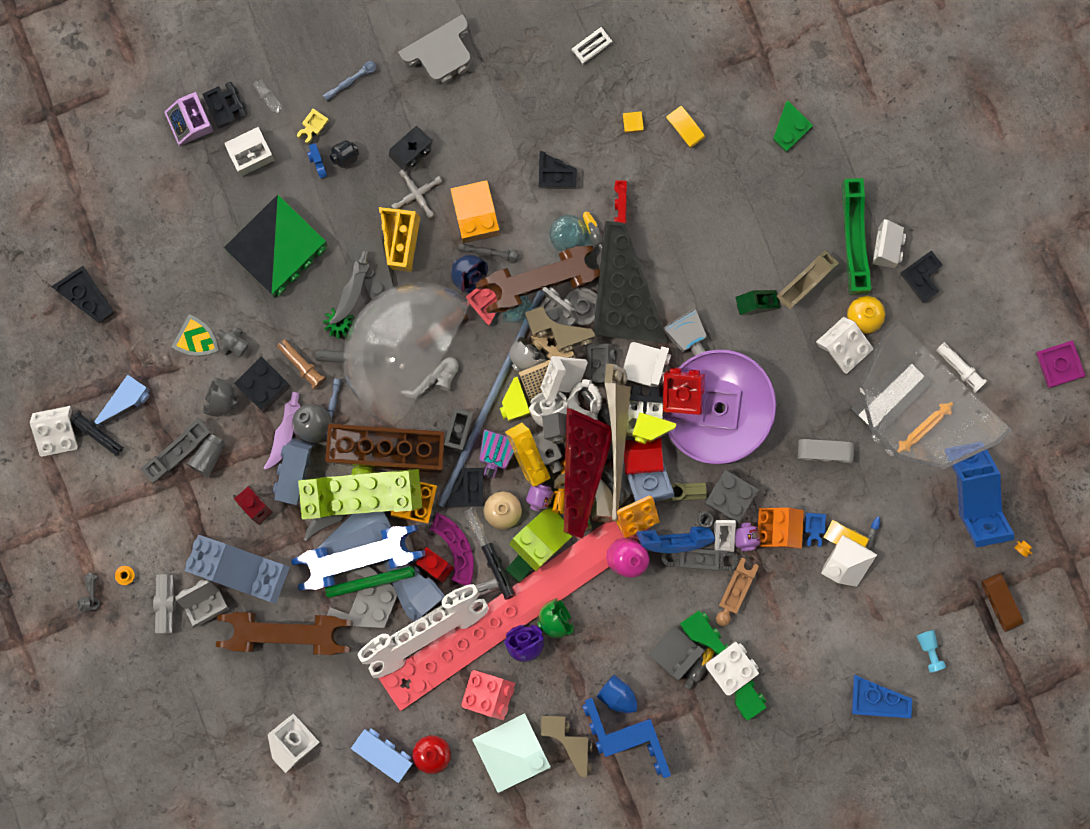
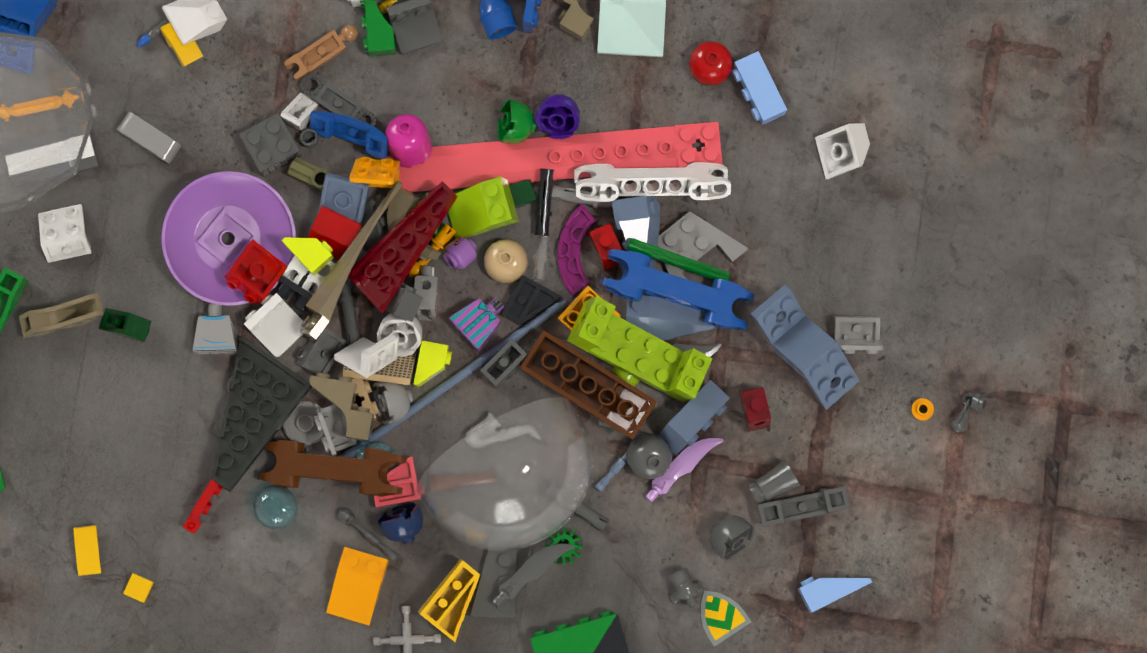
camera: 155 degrees left, 0 degrees up
(53, 431) = (918, 600): white bracket -> none
(89, 428) = (881, 581): black pin -> none
(164, 604) = (897, 357): light grey piece -> none
(262, 384) = (678, 525): black brick -> none
(306, 370) = (624, 515): medium nougat pin -> none
(319, 635) = (824, 279): reddish brown piece -> none
(488, 695) = (623, 88): coral bracket -> none
(527, 454) = (448, 297): yellow piece -> none
(555, 173) = (251, 578): black wing -> none
(594, 231) = (247, 493): dark grey piece -> none
(596, 403) = (372, 314): white piece -> none
(747, 537) = (278, 96): medium lavender head -> none
(780, 527) = (240, 88): orange slope -> none
(815, 525) = (205, 71): blue plate -> none
(867, 314) = (23, 251): yellow cylinder -> none

